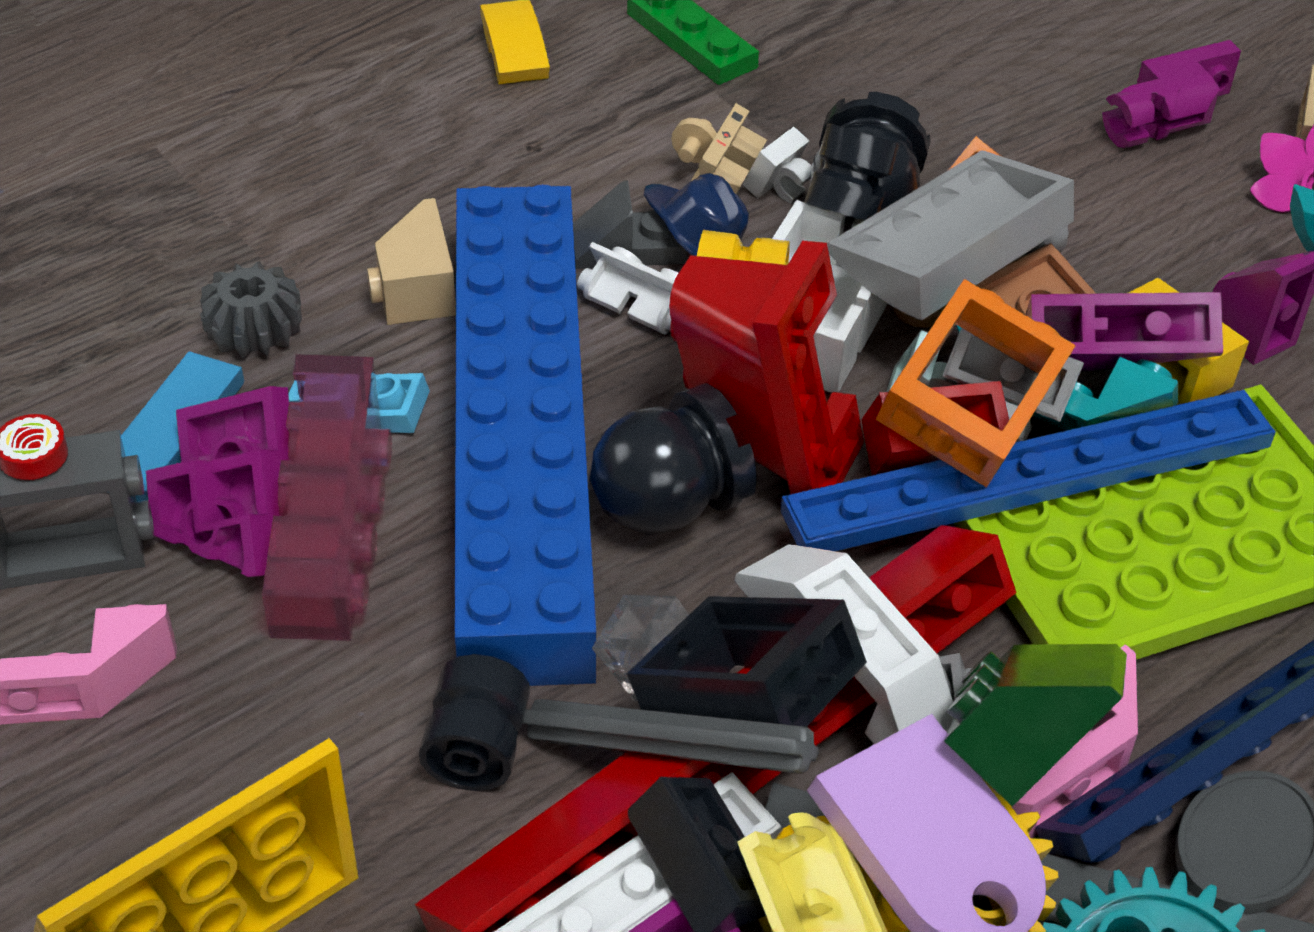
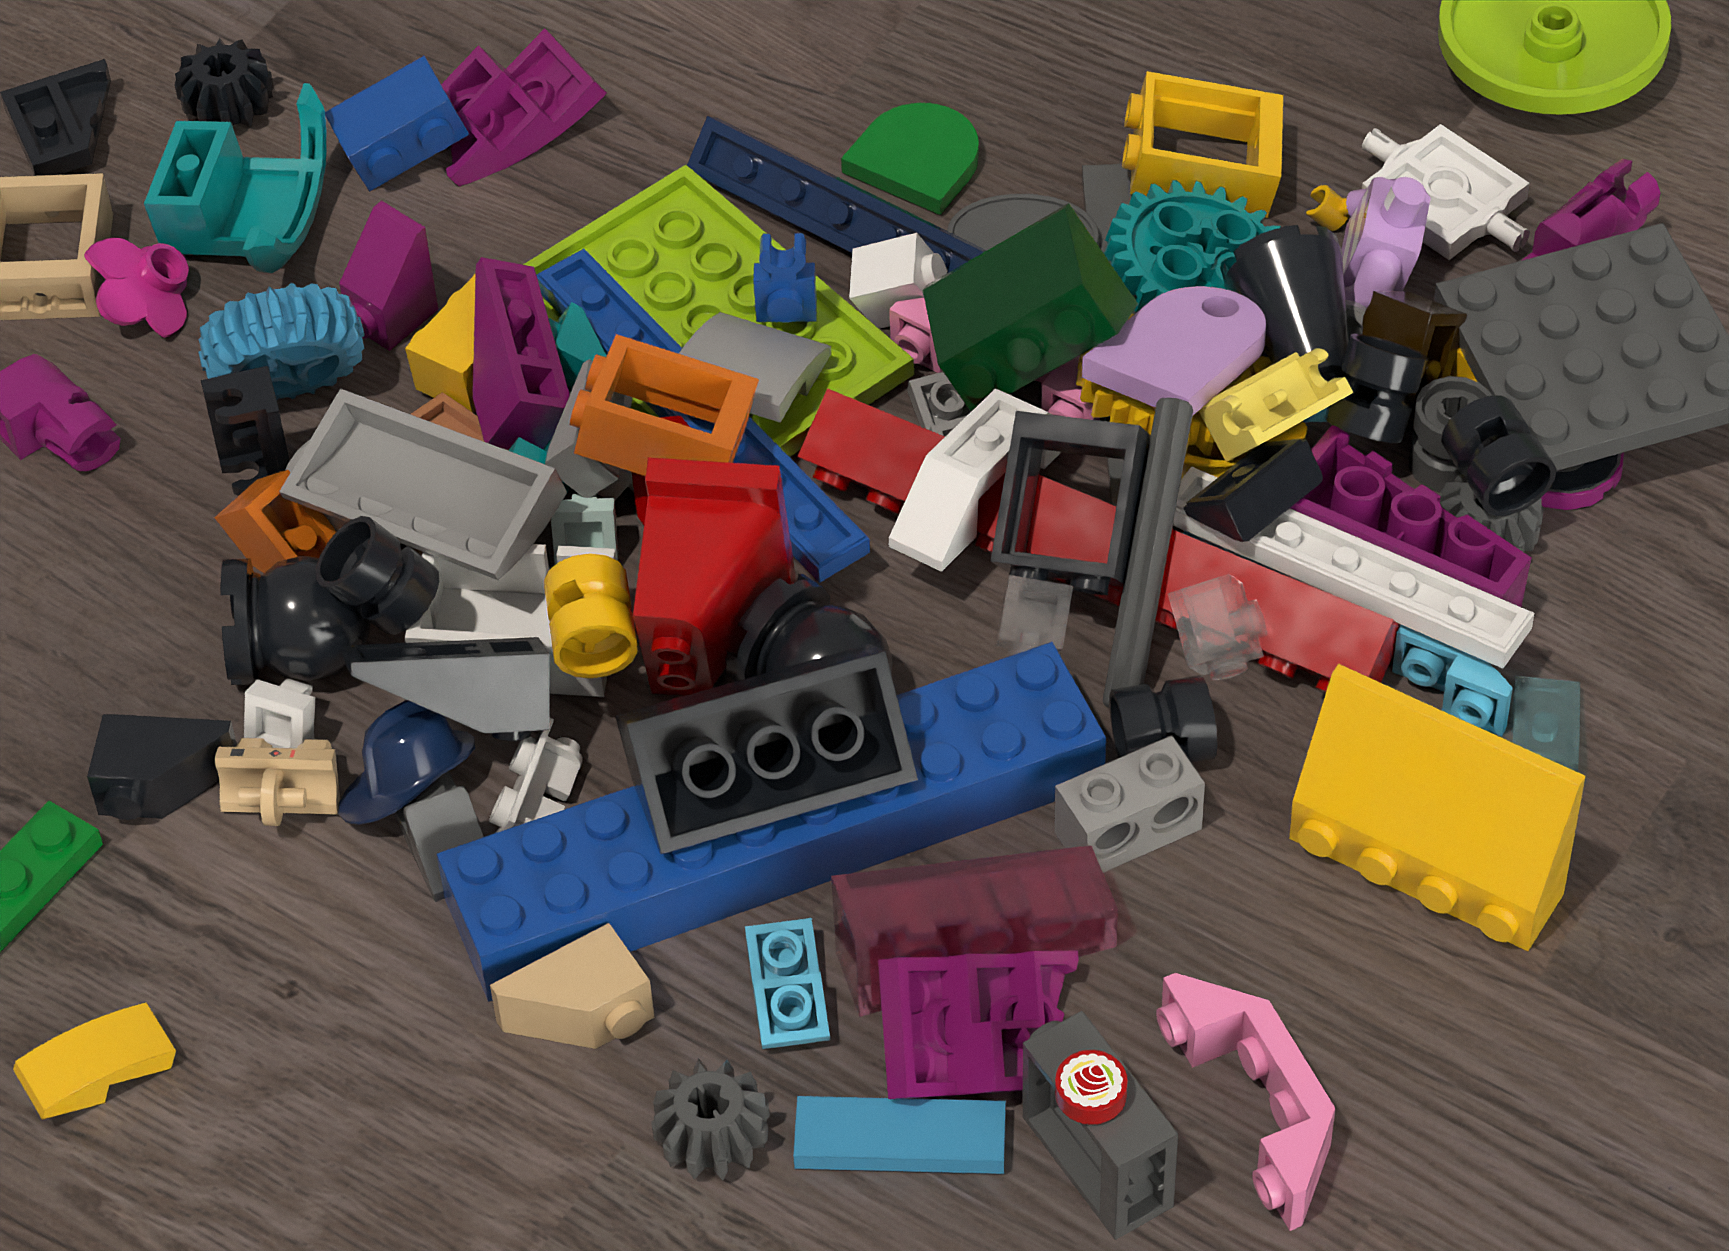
camera: 105 degrees left, 5 degrees up
(389, 664) = (1131, 804): none -> light grey brick
(544, 771) = (1218, 627): none -> clear brick
(546, 360) = (767, 747): none -> black slope
(727, 188) = (480, 683): none -> slope
(769, 87) = (154, 763): none -> black slope
(1076, 512) = (778, 359): none -> light grey slope
(1095, 168) = (246, 424): none -> black hinge
(1164, 554) = (784, 283): none -> blue plate
(1179, 675) = (891, 273): none -> white brick
(1183, 204) = (297, 332): none -> dark azure gear

